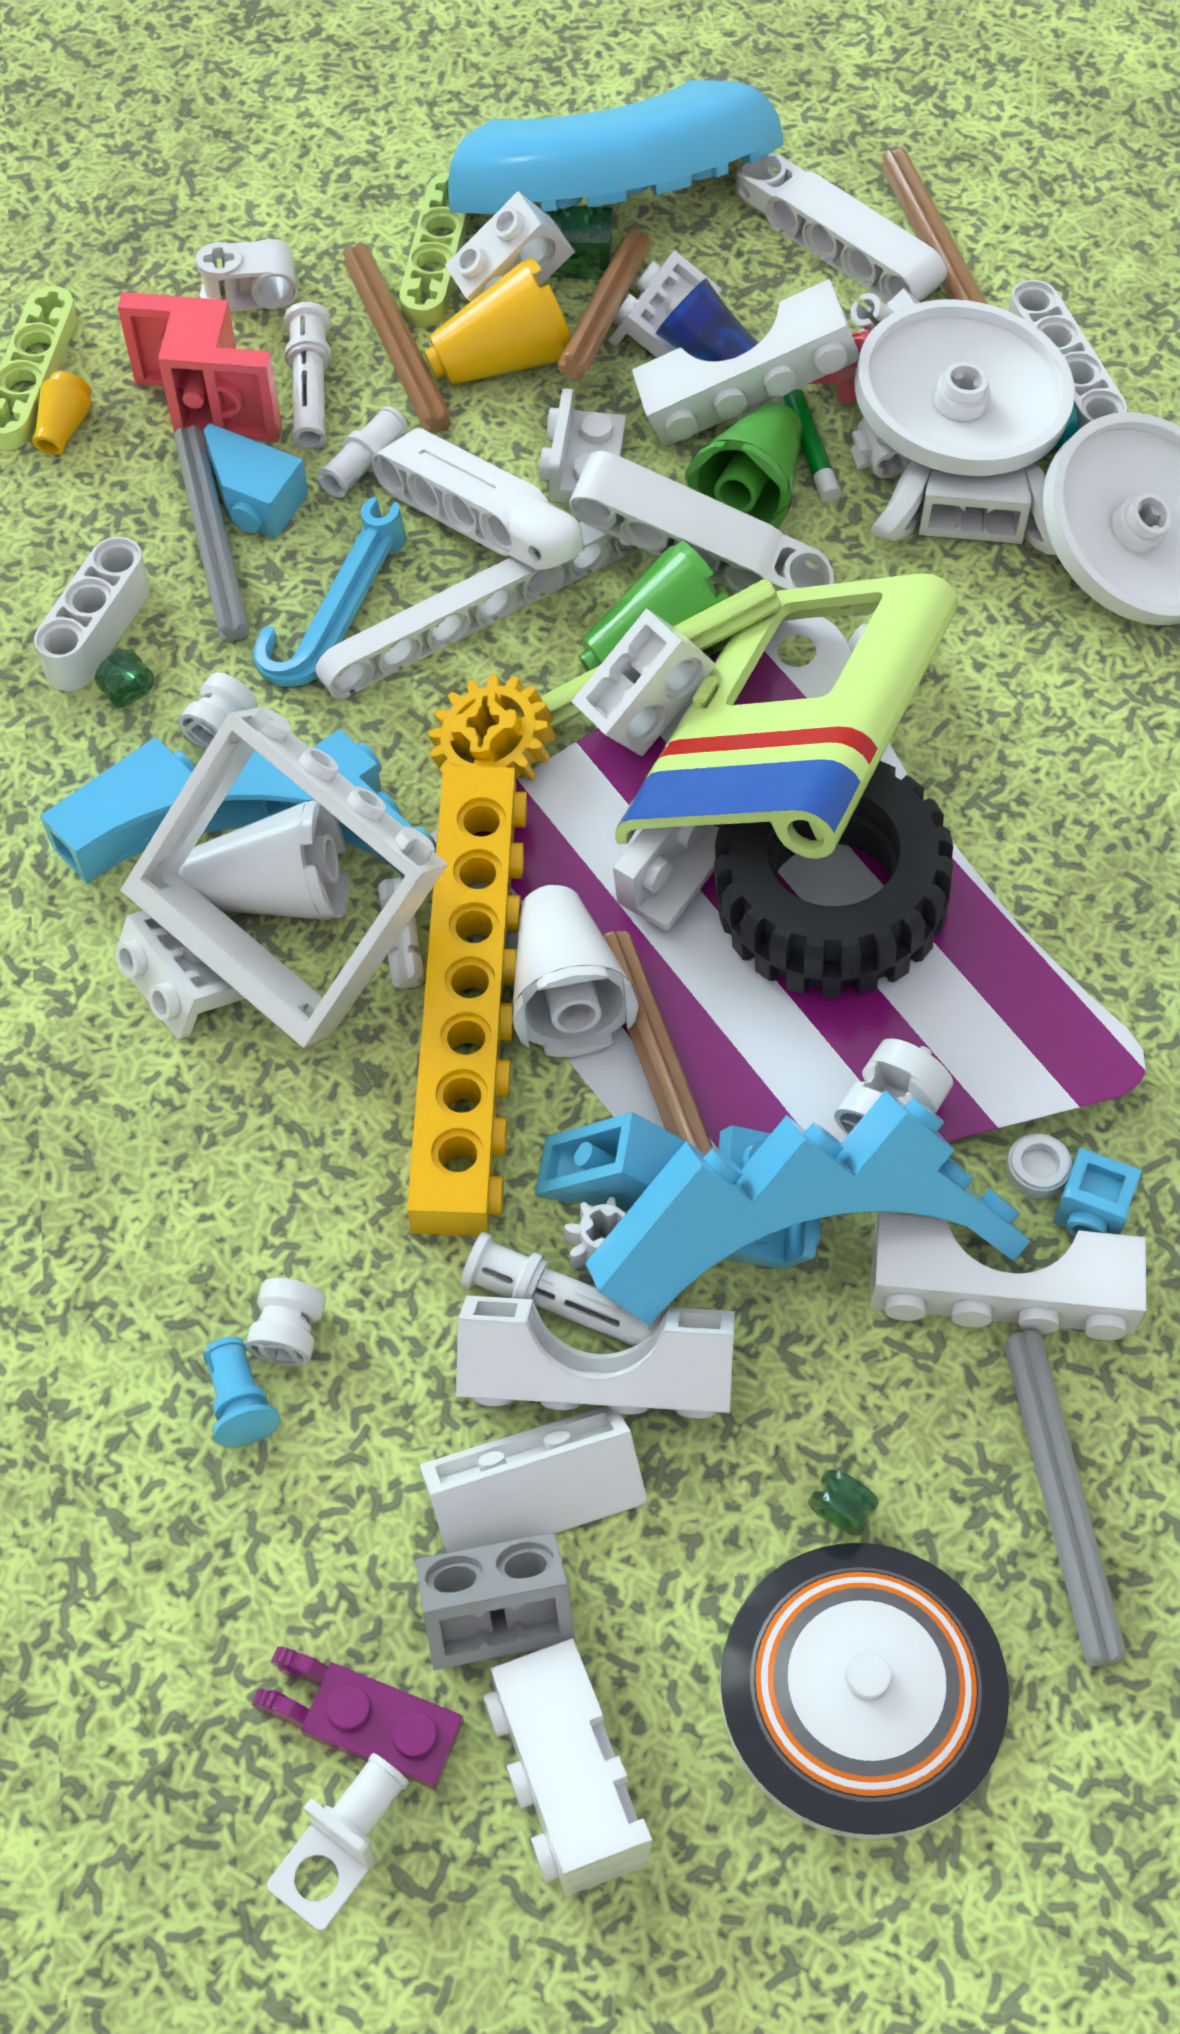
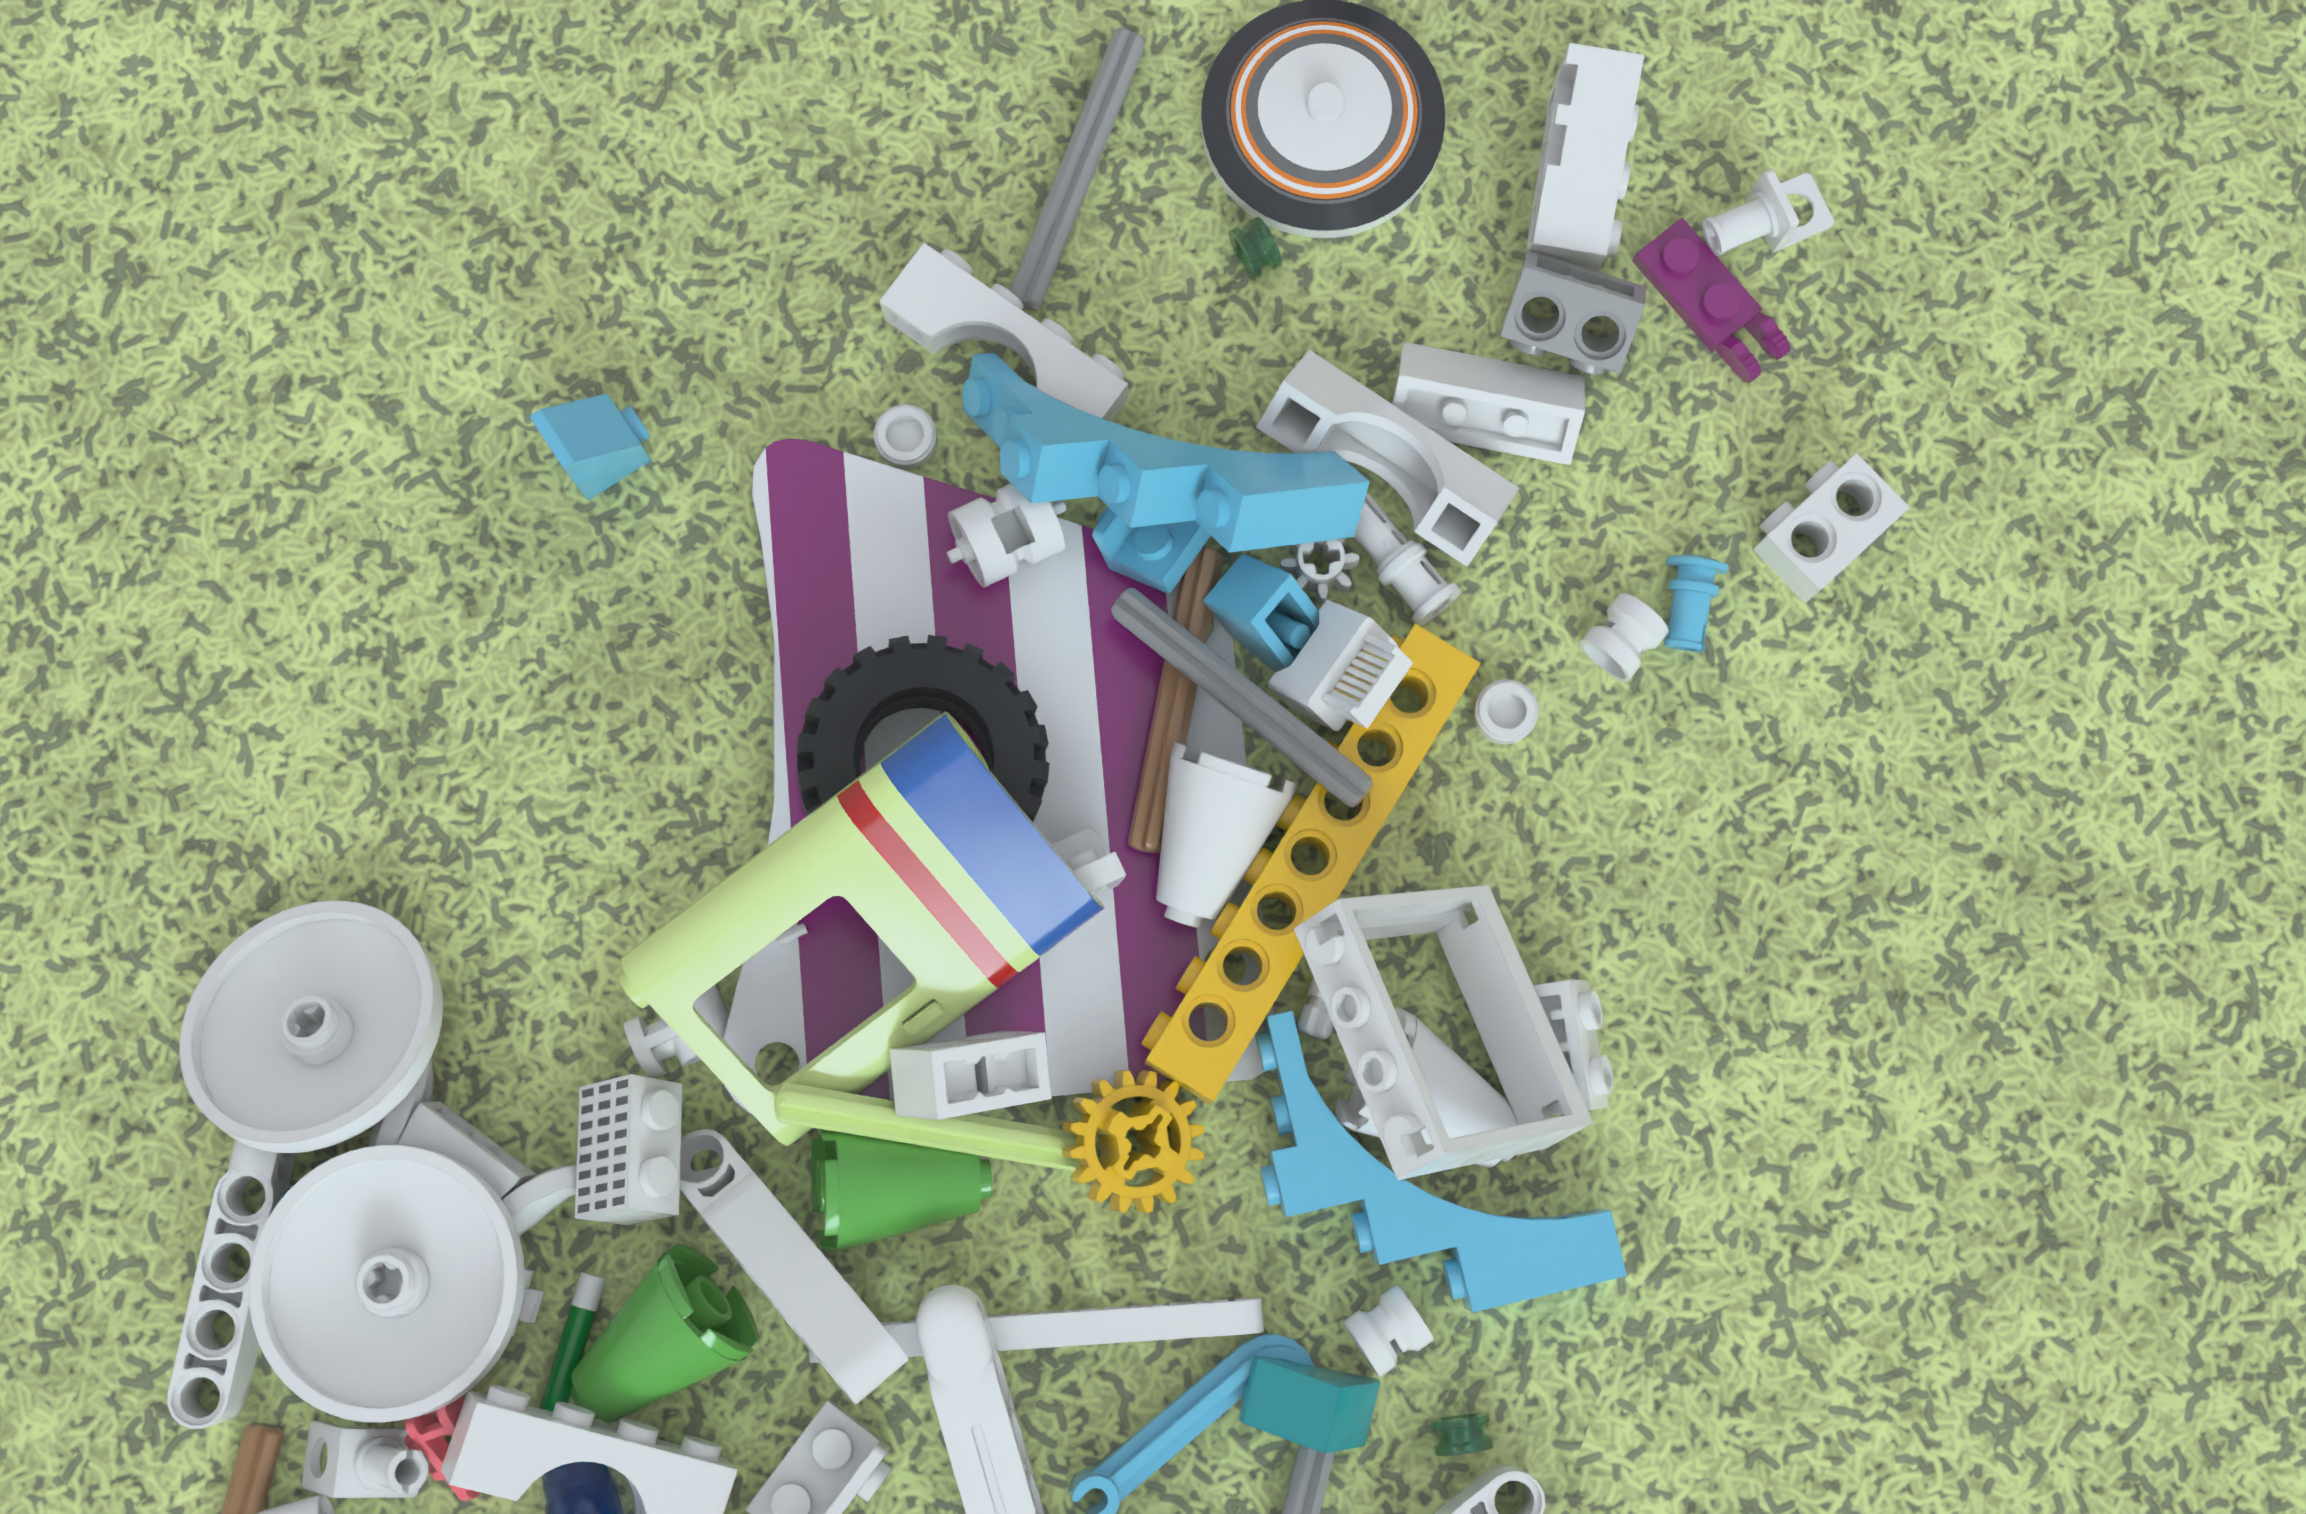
camera: 155 degrees left, 20 degrees up
(113, 1528) = (1834, 533): none -> white brick
(251, 634) = (1309, 1404): none -> teal slope
(363, 1213) = (1505, 711): none -> white tile
(527, 1137) = (1342, 670): none -> white piece
(604, 1067) = (1242, 697): none -> light grey axle
(857, 538) = (628, 1150): none -> white brick
(1096, 1194) = (884, 372): medium azure bracket -> none

